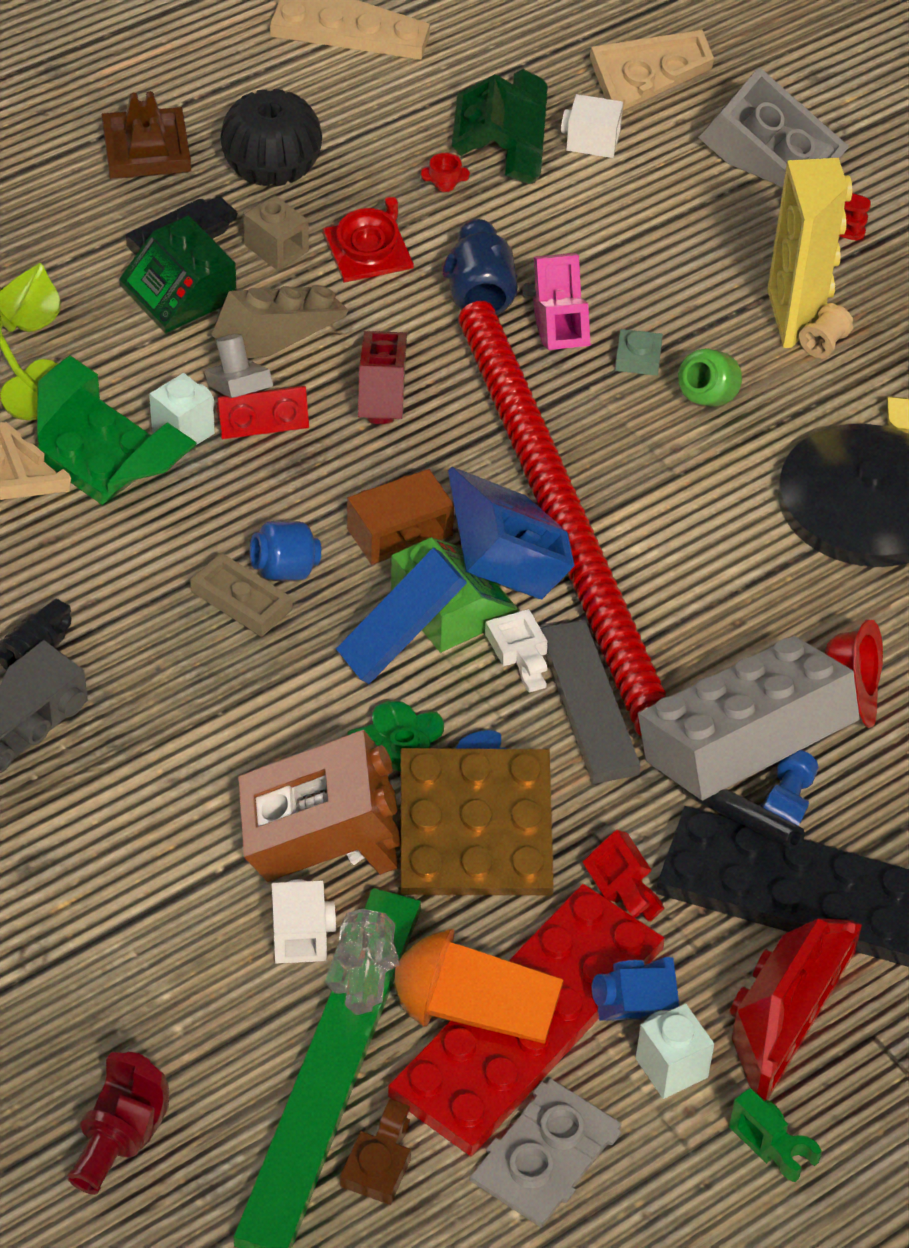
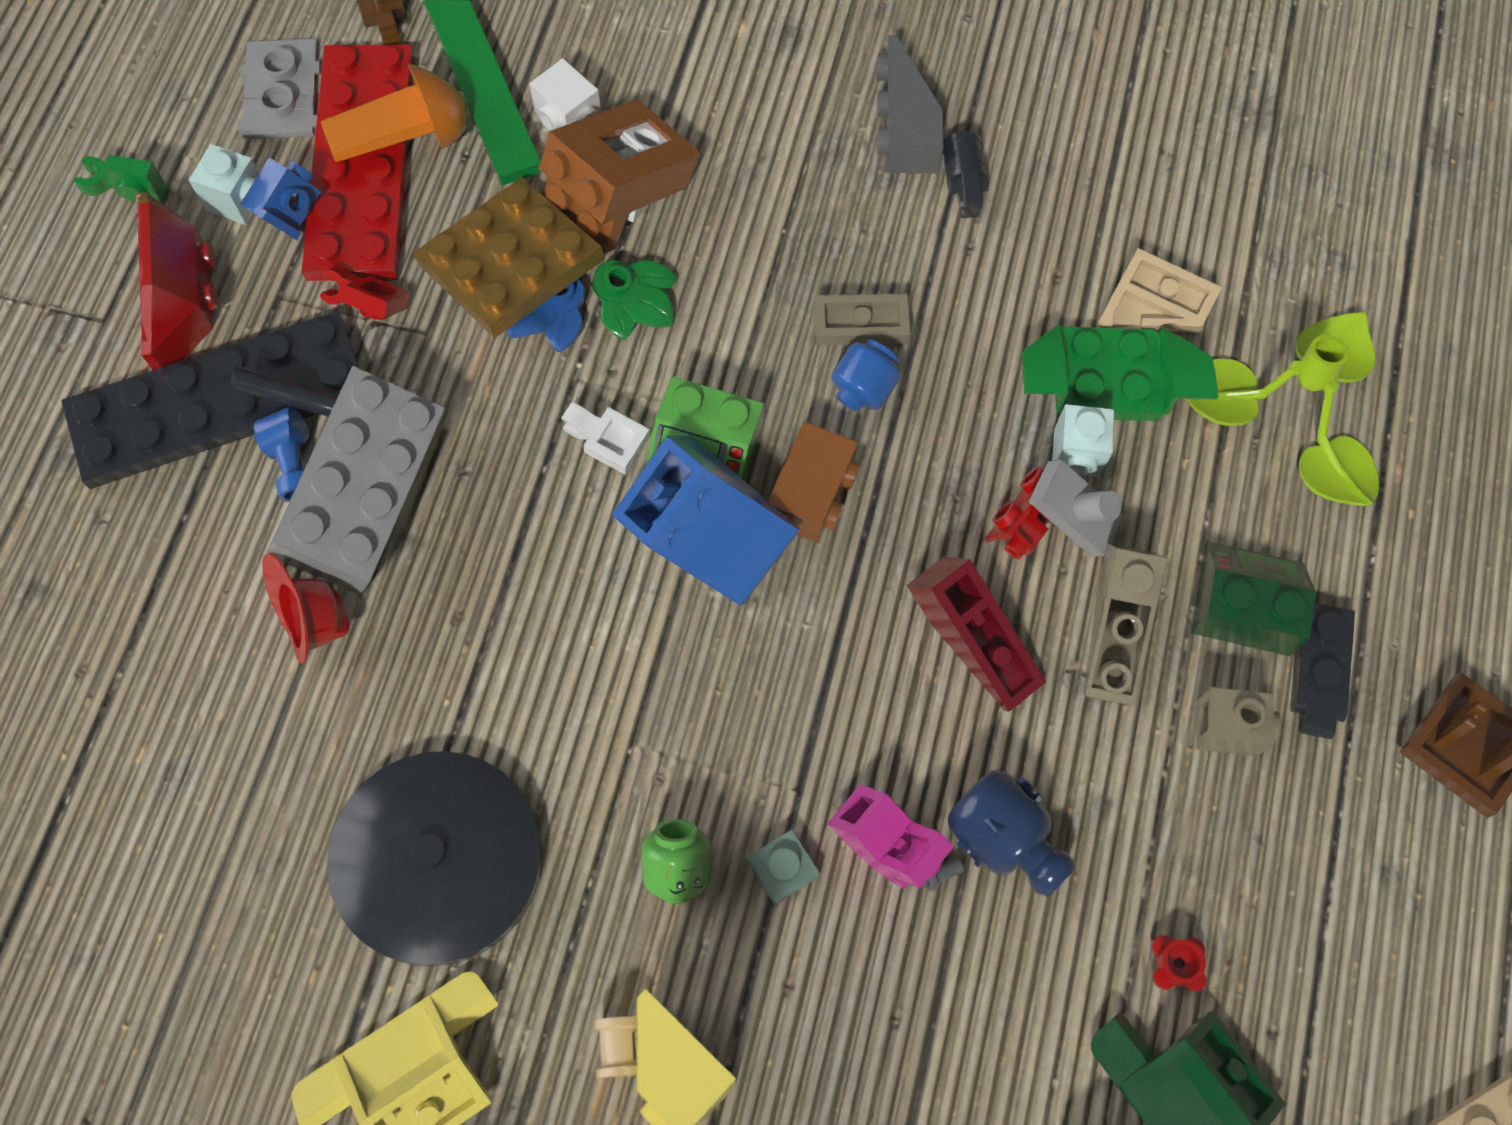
camera: 140 degrees right, 20 degrees up
(271, 137) = (1369, 835): black wheel -> none
(362, 959) = (489, 86): clear rock -> none
(368, 243) = (1149, 797): red hat -> none
(401, 615) = (705, 362): blue tile -> none
(557, 497) = (703, 608): red piece -> none
(590, 703) = (518, 436): dark grey tile -> none

